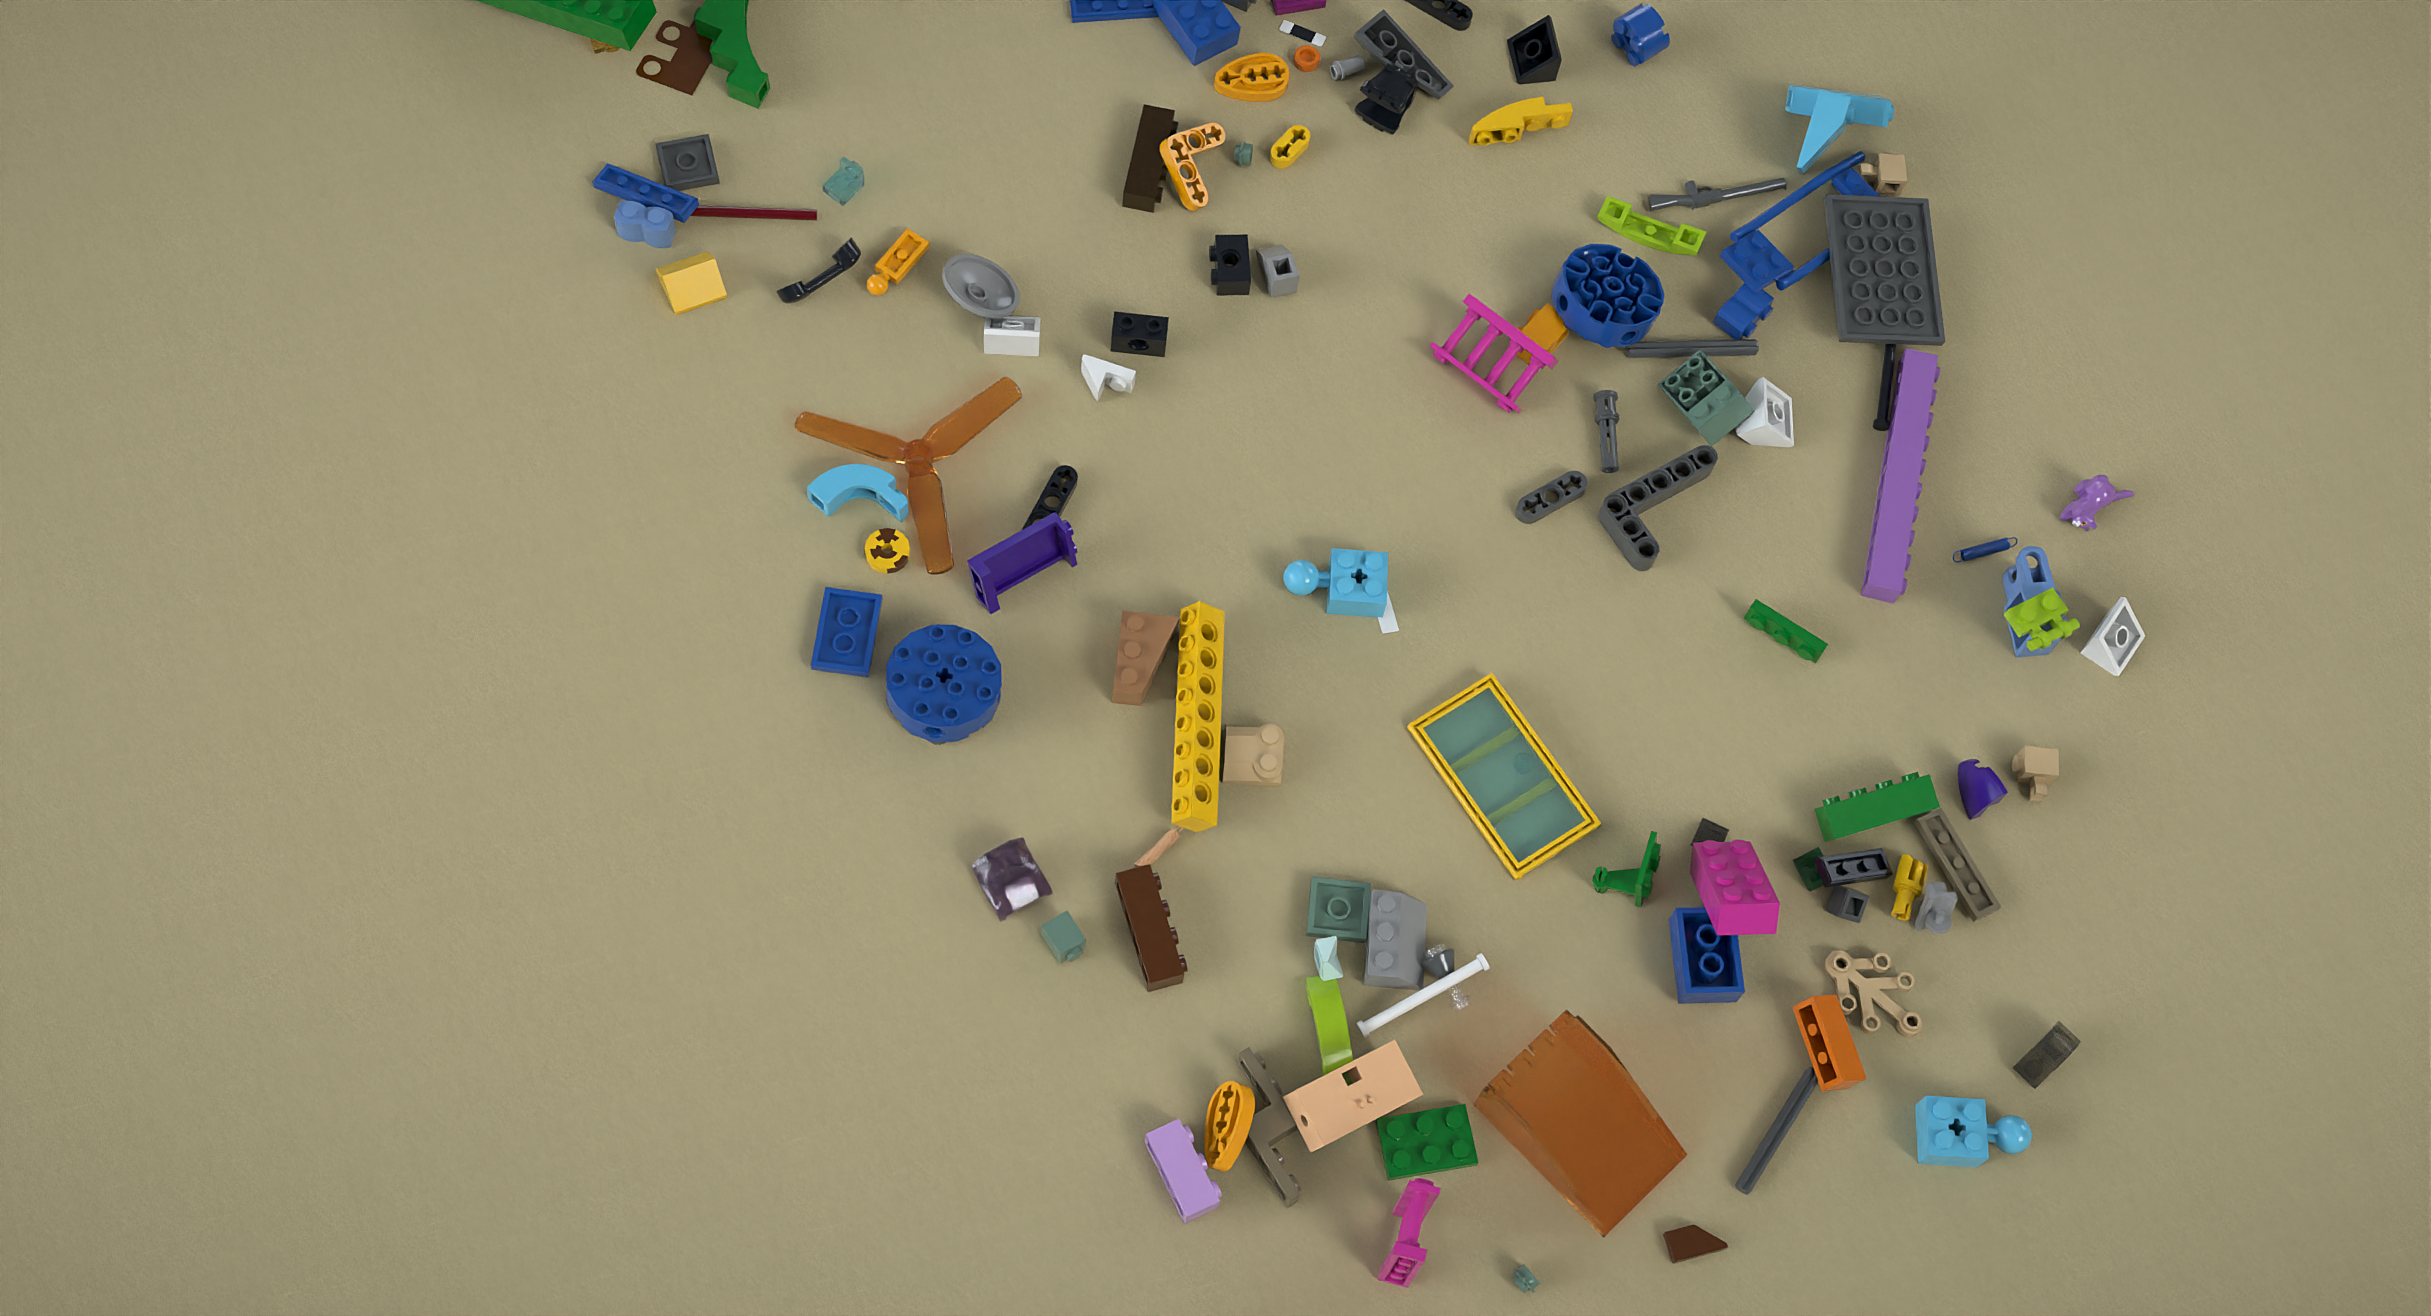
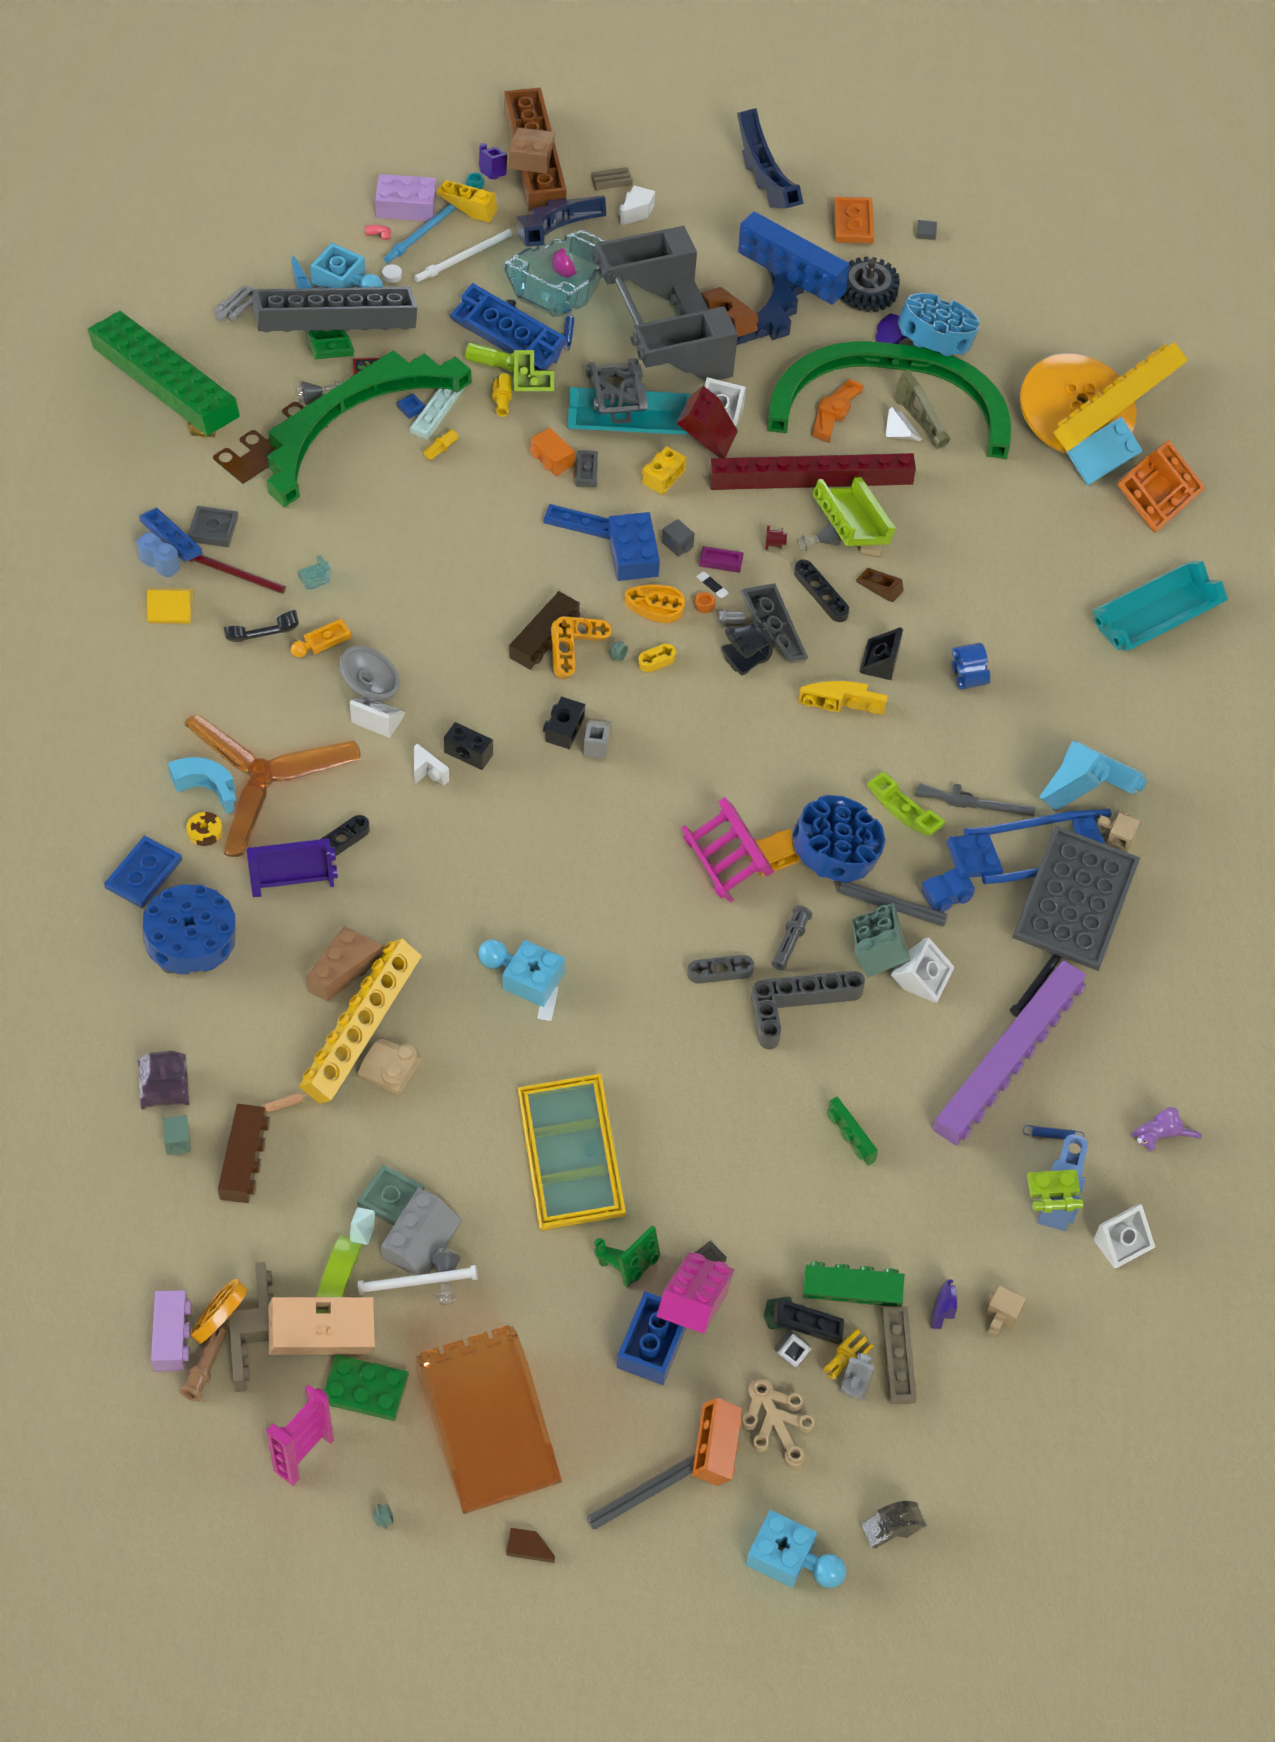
camera: 30 degrees right, 10 degrees down
(1241, 1204) = (200, 1373): none -> medium nougat pin

